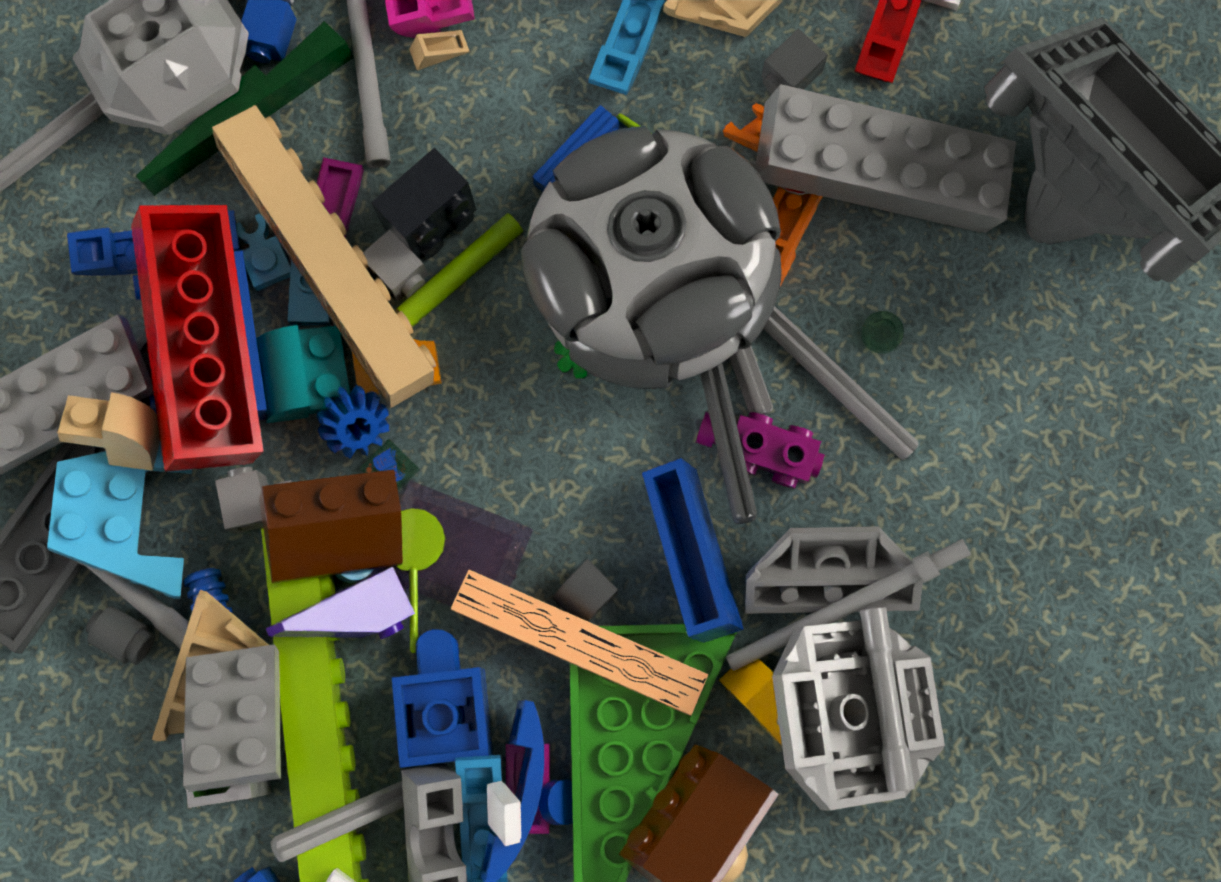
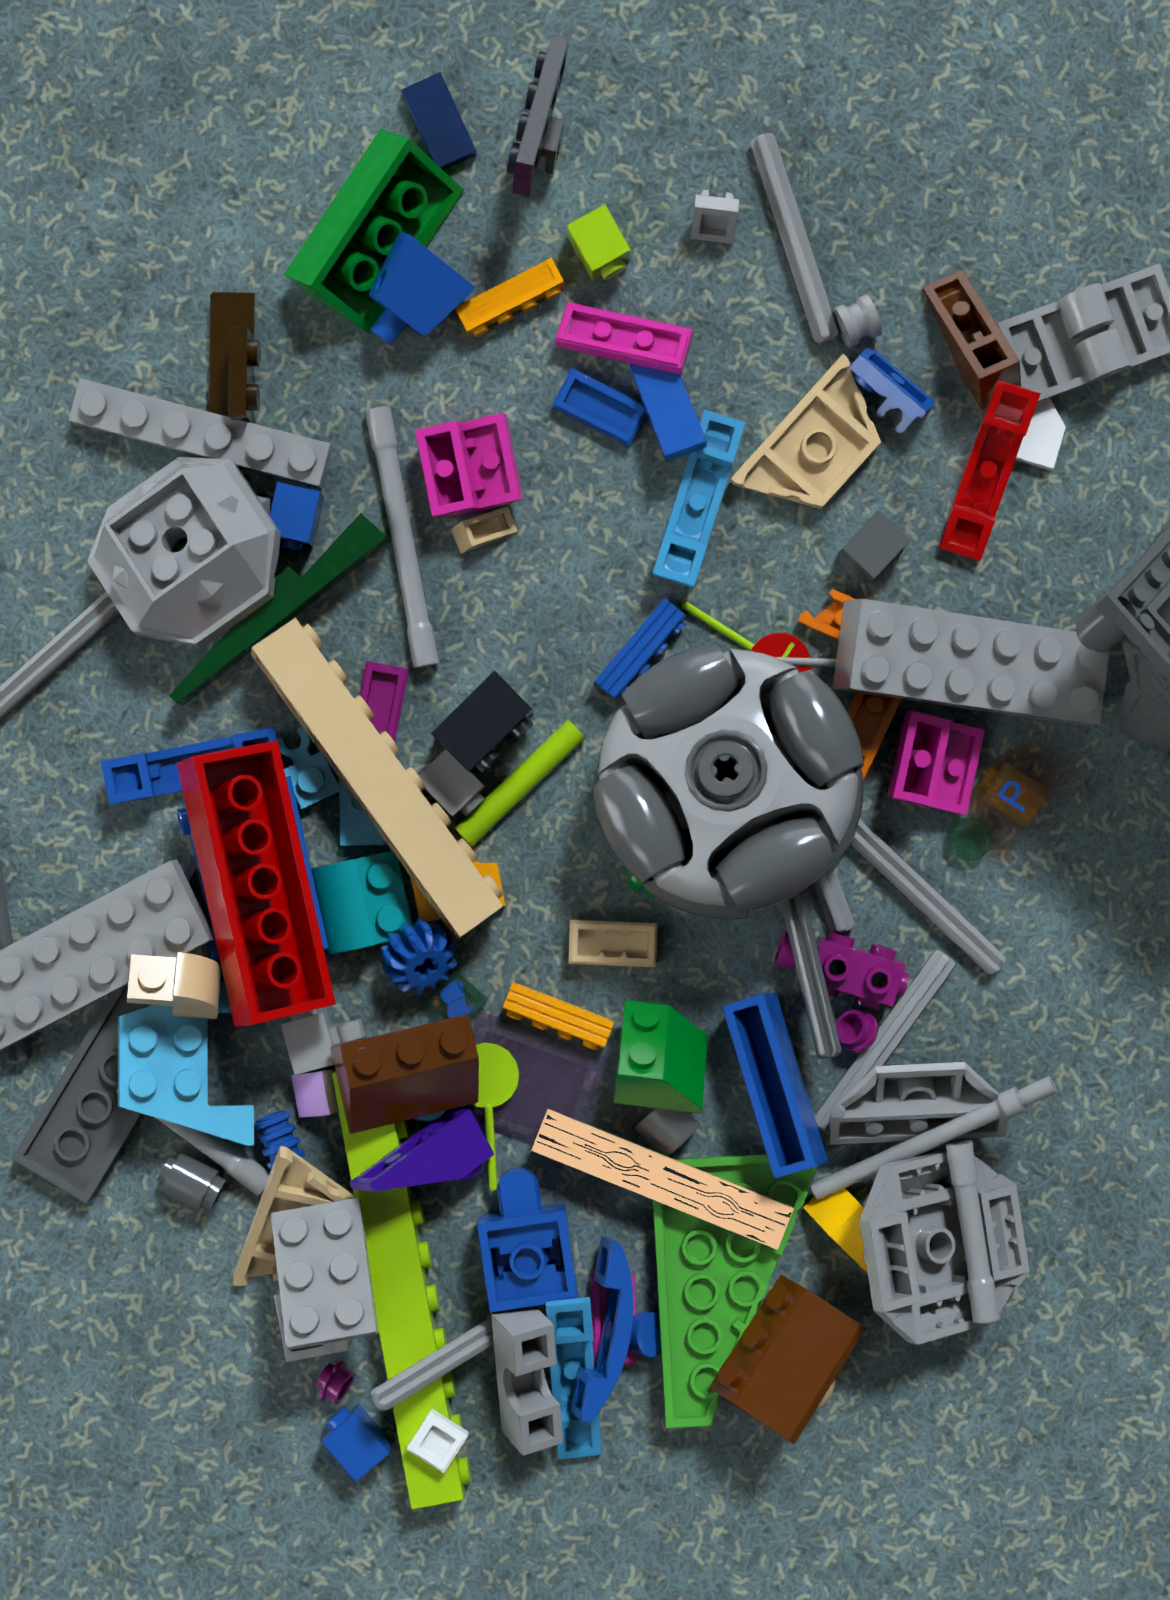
camera: 10 degrees left, 10 degrees up
(245, 552) = (315, 1093): none -> lavender tile
(246, 842) = (335, 1382): none -> magenta plate
(486, 485) = (559, 1015): none -> light orange piece
(504, 813) = (596, 1355): white tile -> none
(540, 418) = (613, 943): none -> tan plate
(579, 523) = (660, 1059): none -> green slope
(773, 506) = (857, 1030): none -> magenta plate
(814, 499) = (891, 1030): none -> light grey axle
(849, 257) = (935, 763): none -> dark pink brick
(922, 288) = (1010, 793): none -> clear orange brick

